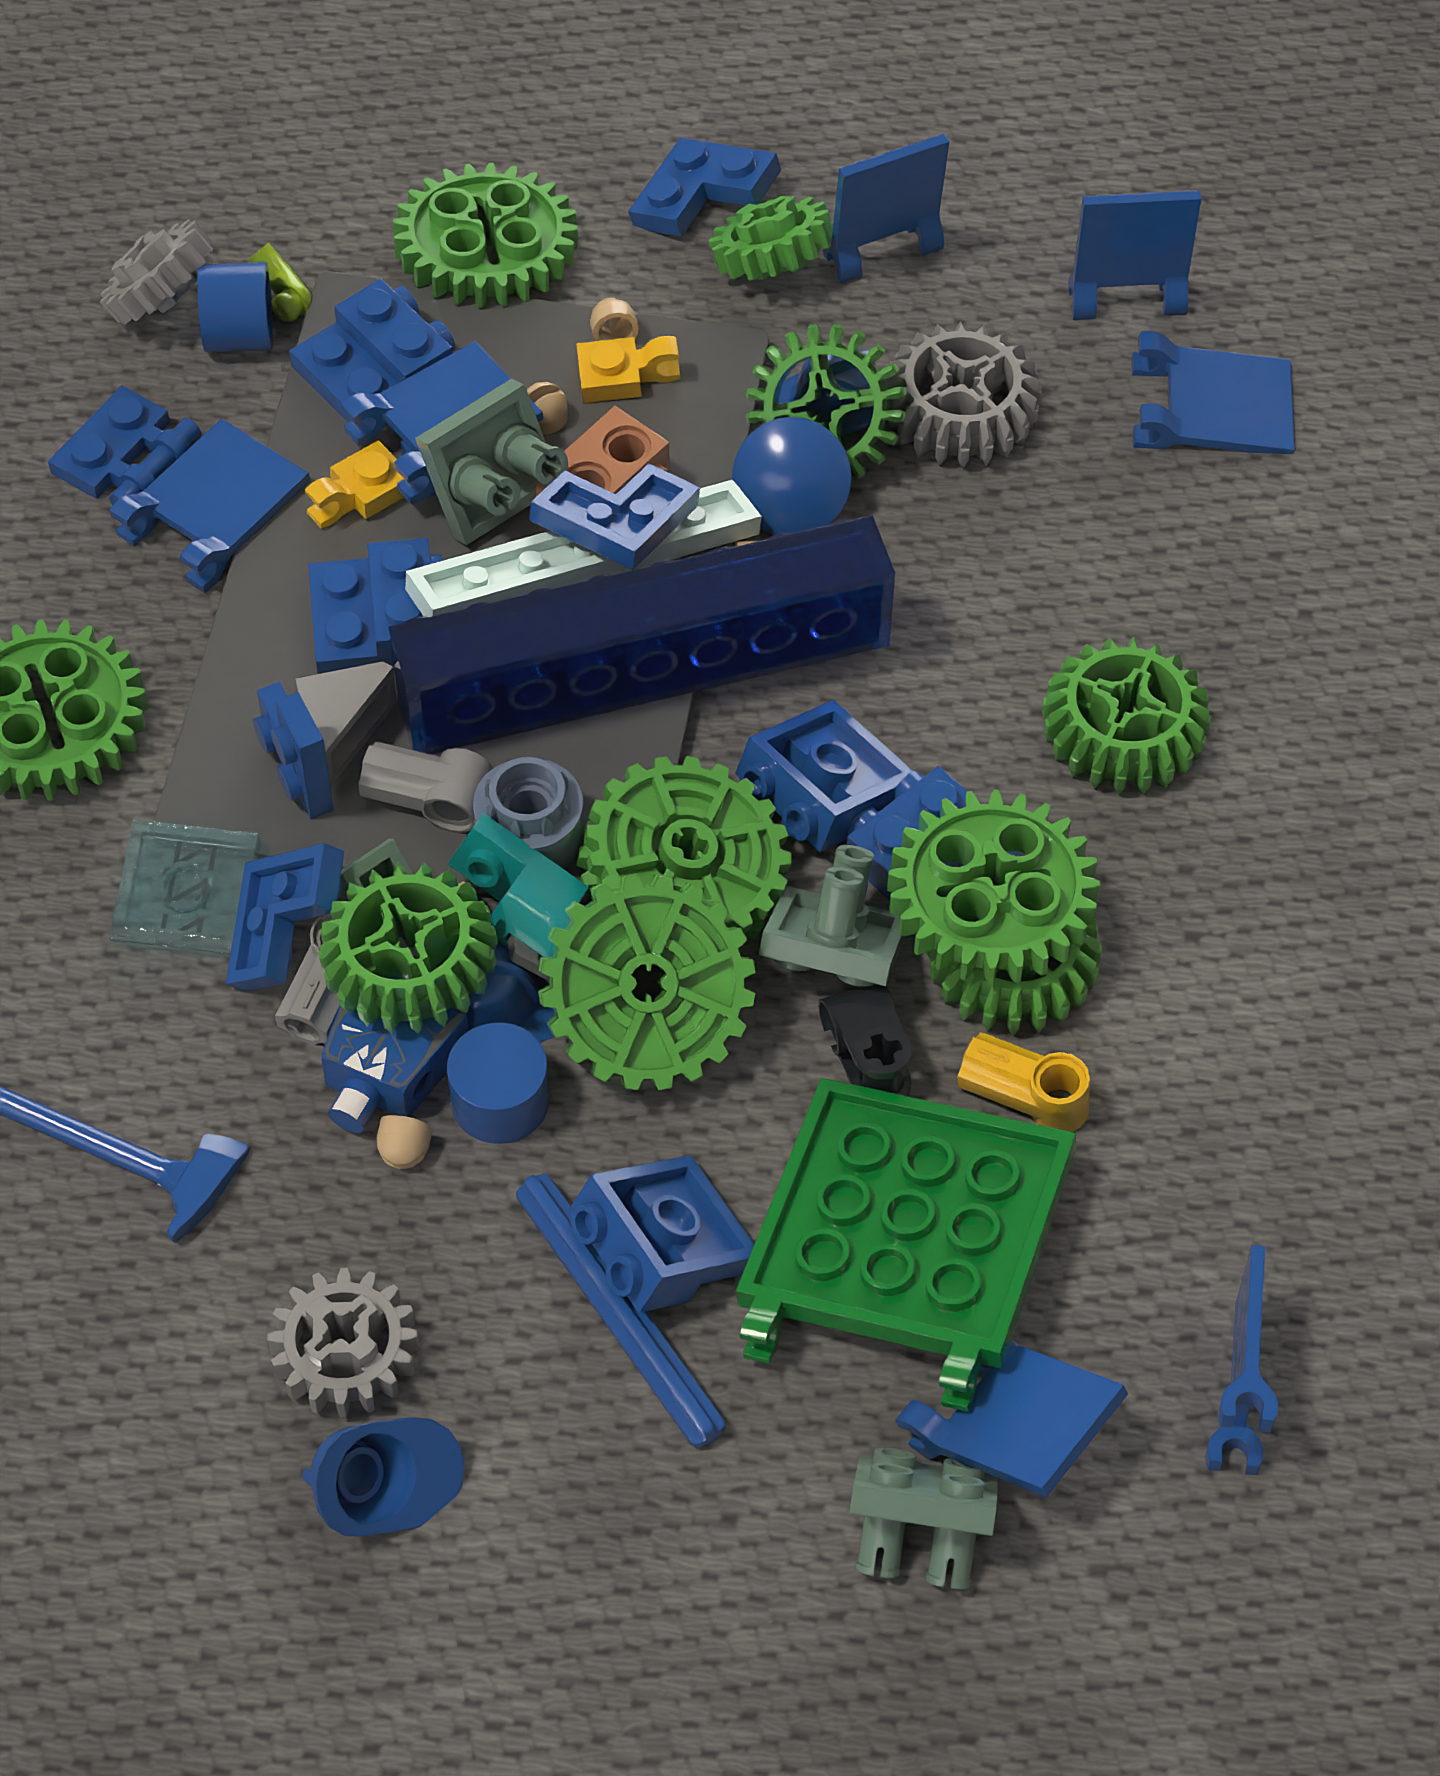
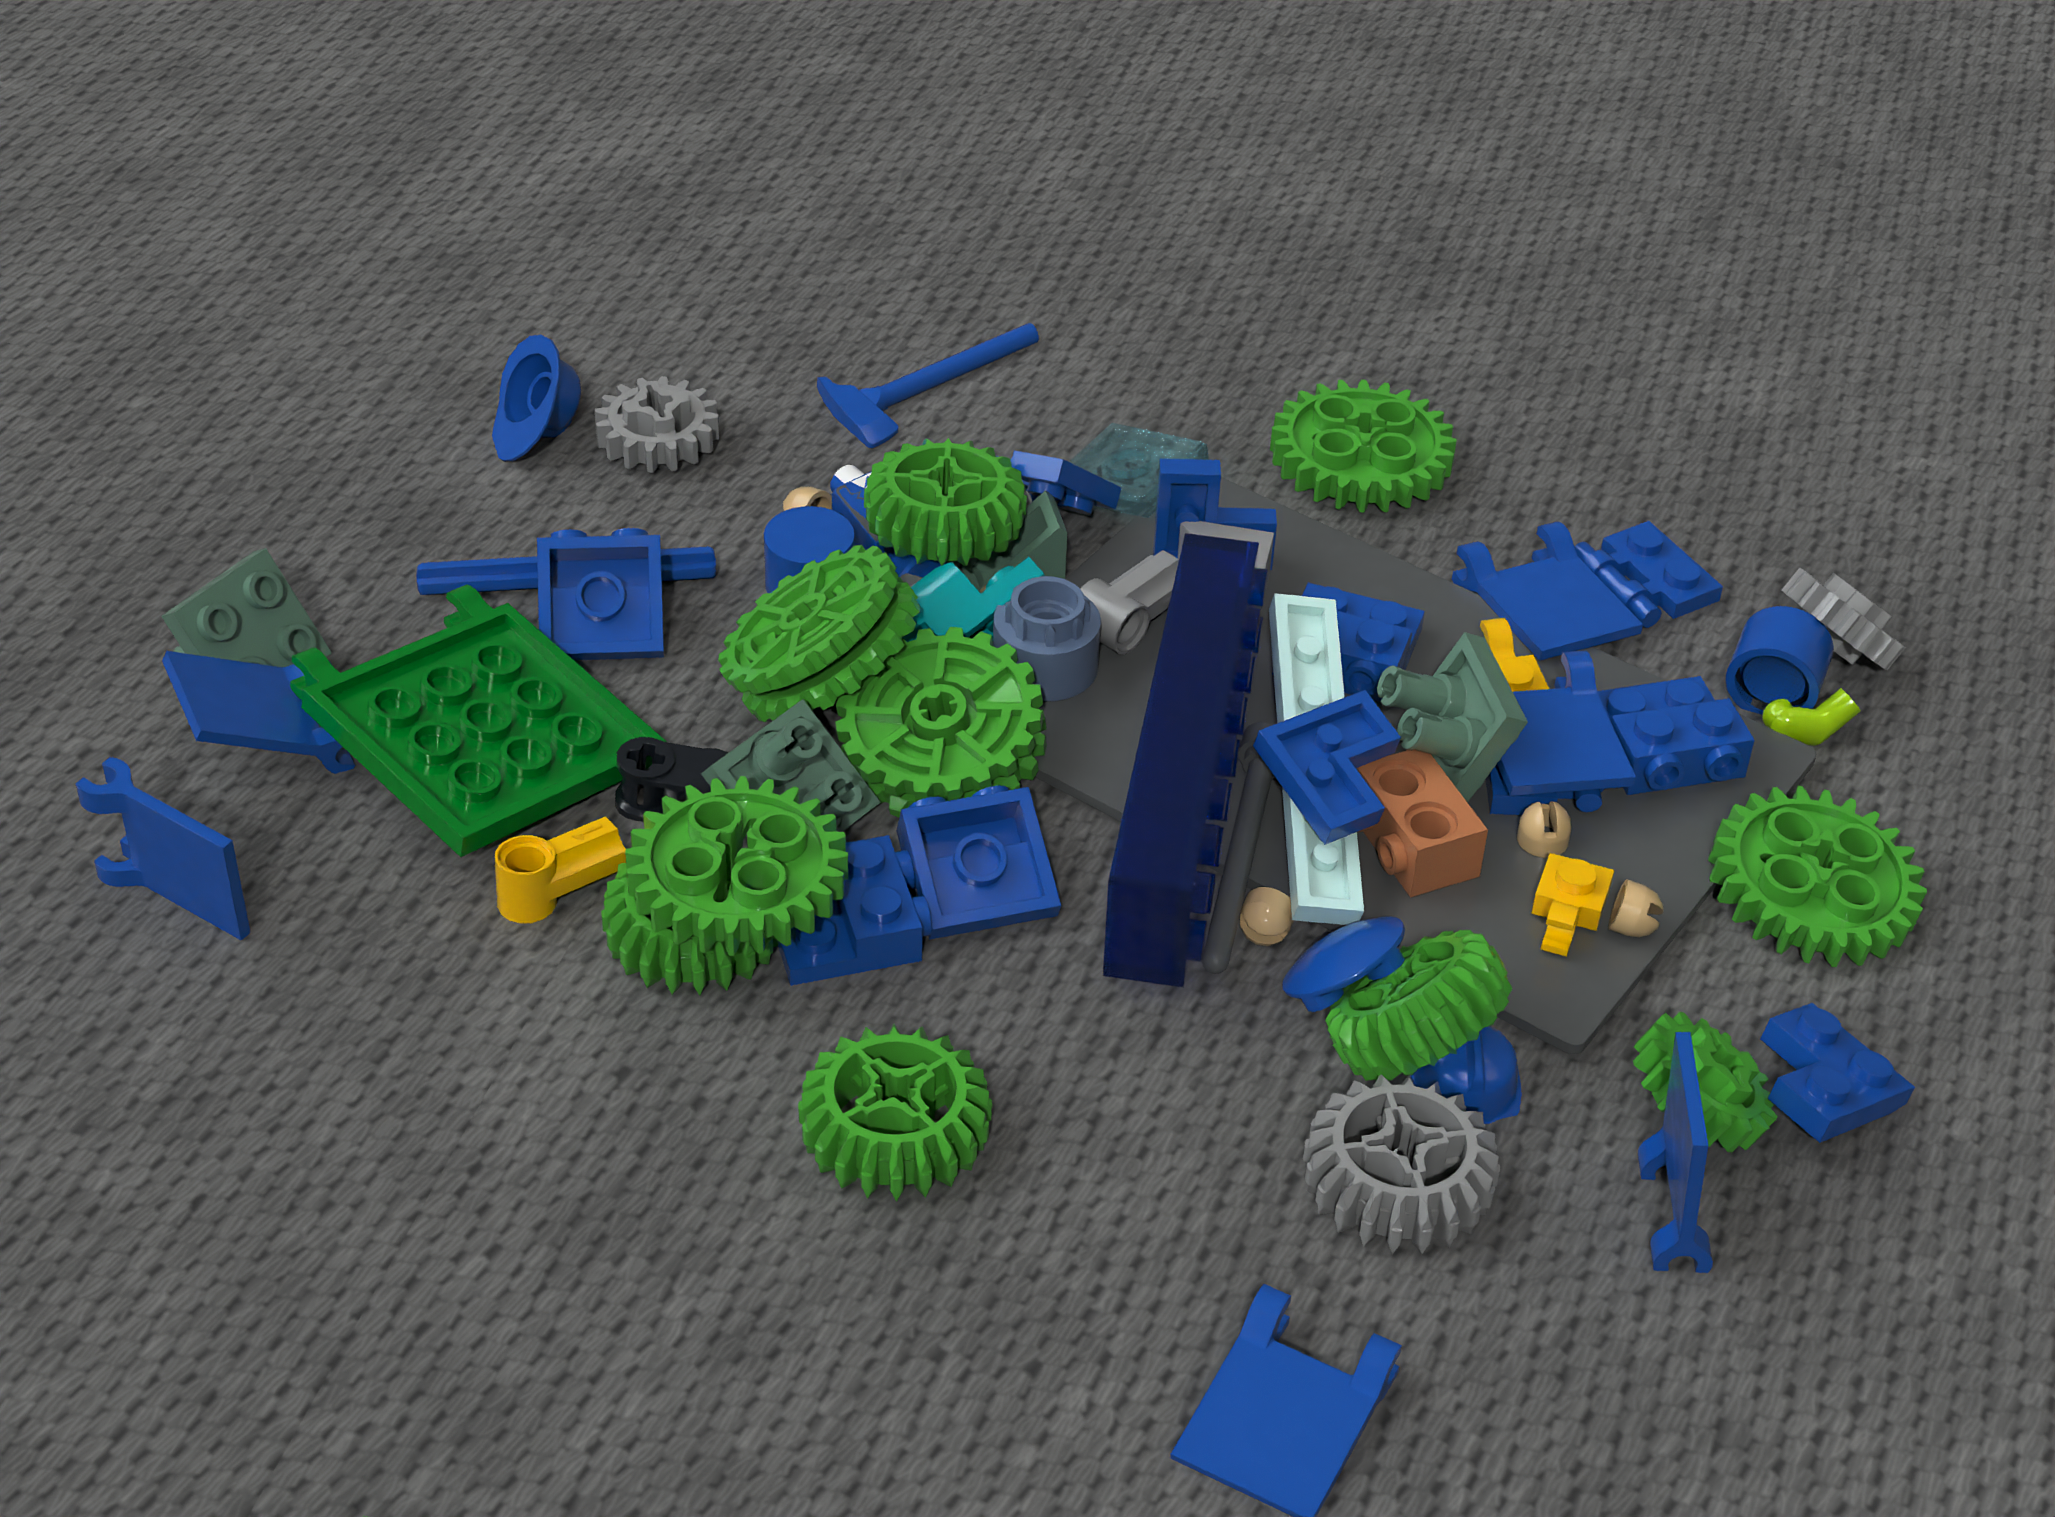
camera: 115 degrees right, 15 degrees down
(1134, 244) = (1501, 1348): blue flag -> none

